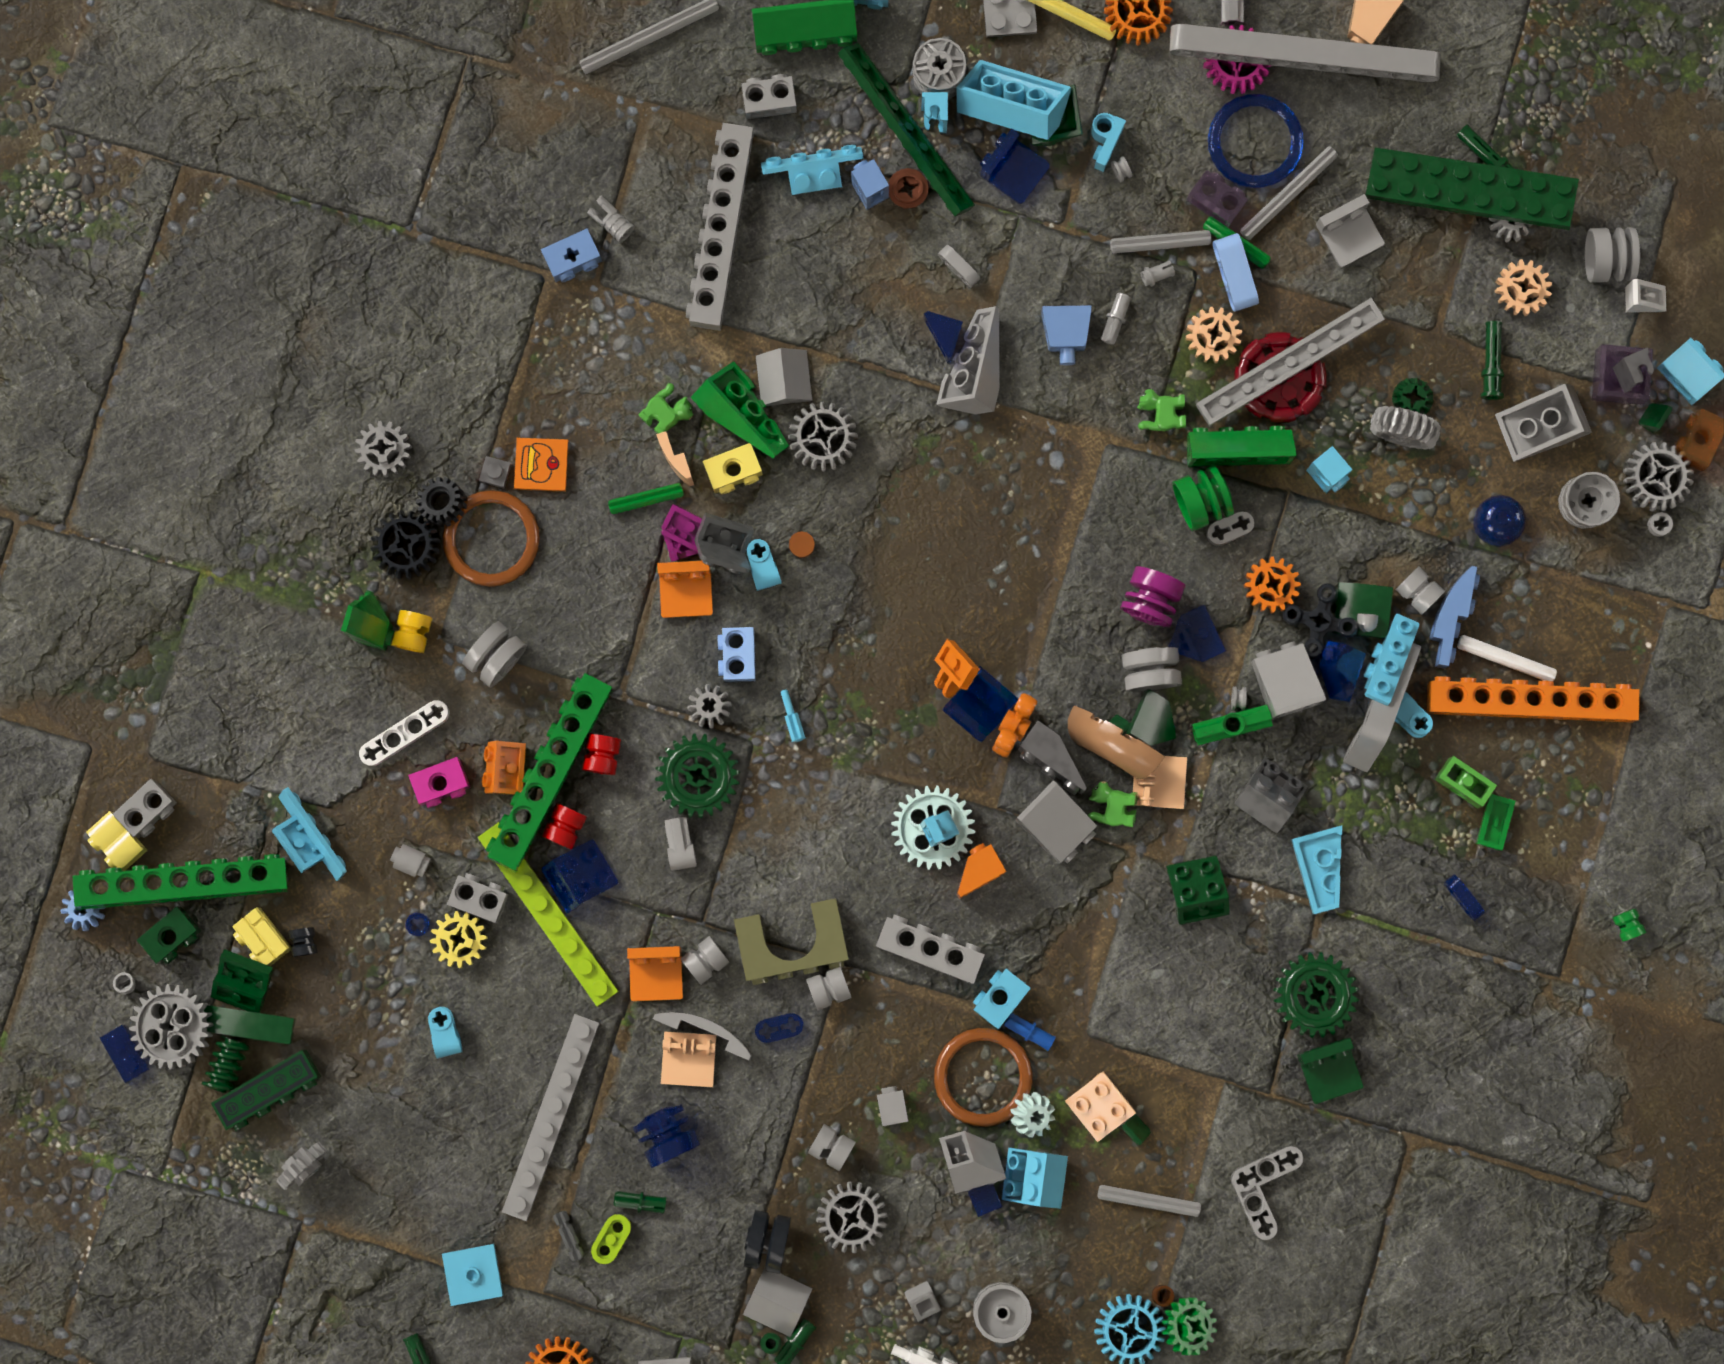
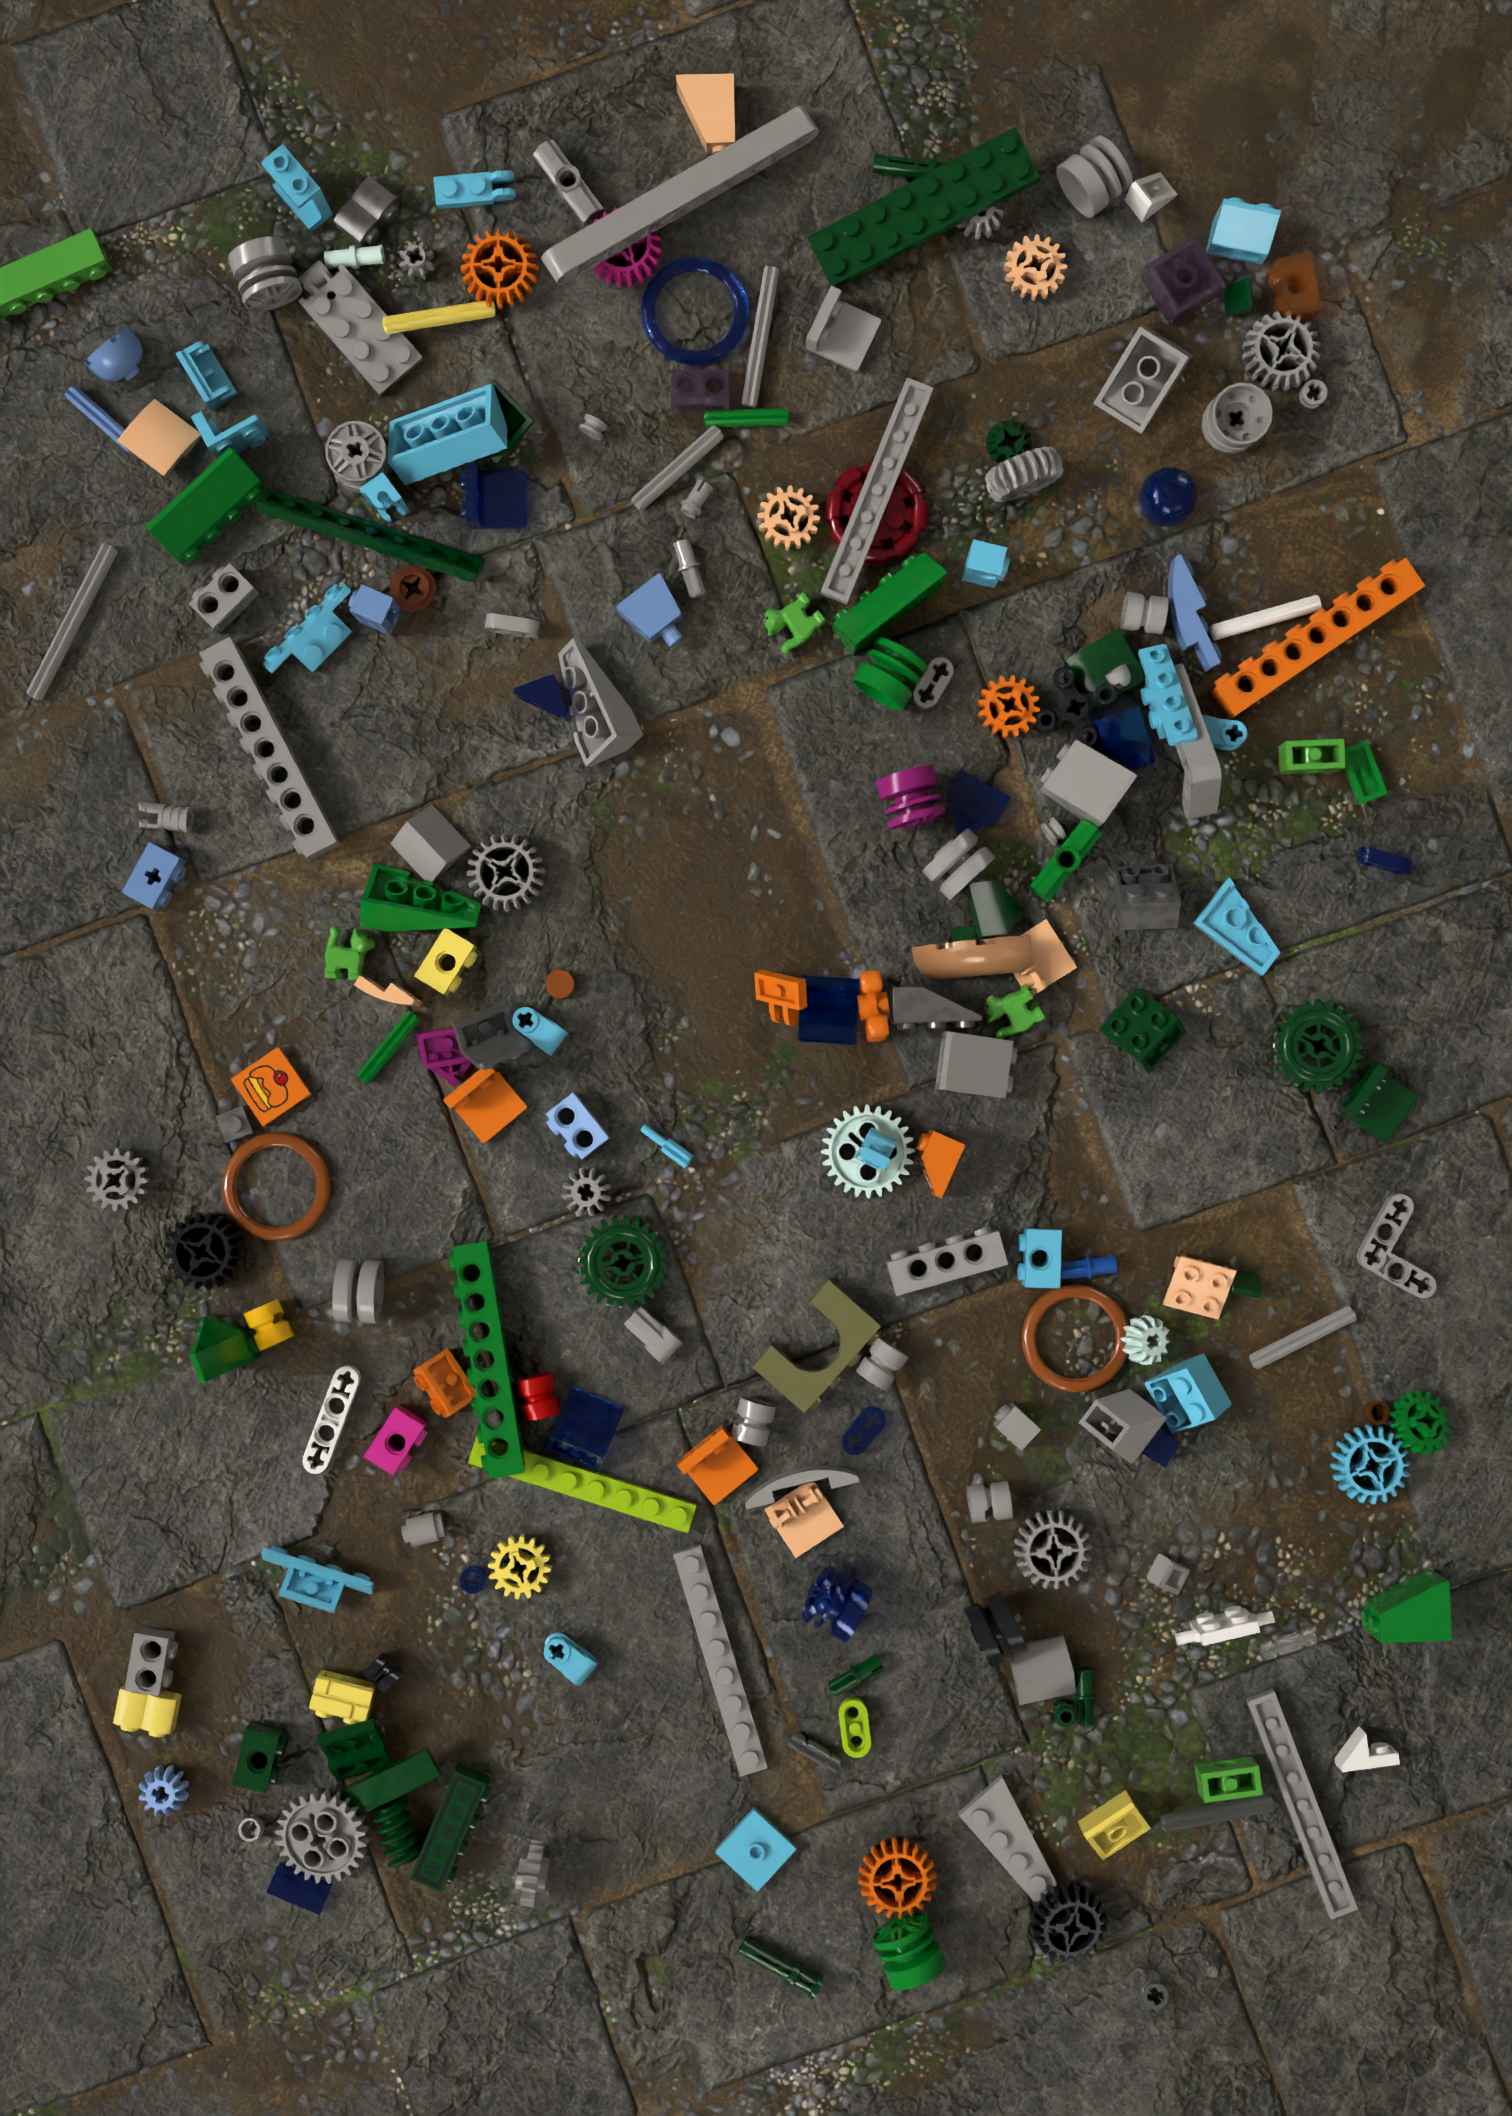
camera: 40 degrees left, 5 degrees up
(114, 897) = (154, 1782): green brick -> none
(451, 511) = (192, 1192): black tyre -> none
(476, 903) = (512, 1524): light grey brick -> none
(601, 754) = (523, 1307): red wheel -> none
(1002, 1328) = (1255, 1549): light grey wheel -> none
(1108, 138) = (560, 408): medium azure plate -> none
(1235, 272) = (766, 445): light blue beam -> none
(1492, 373) = (1064, 366): dark green pin -> none
(1628, 369) = (1192, 270): flat silver hinge -> none

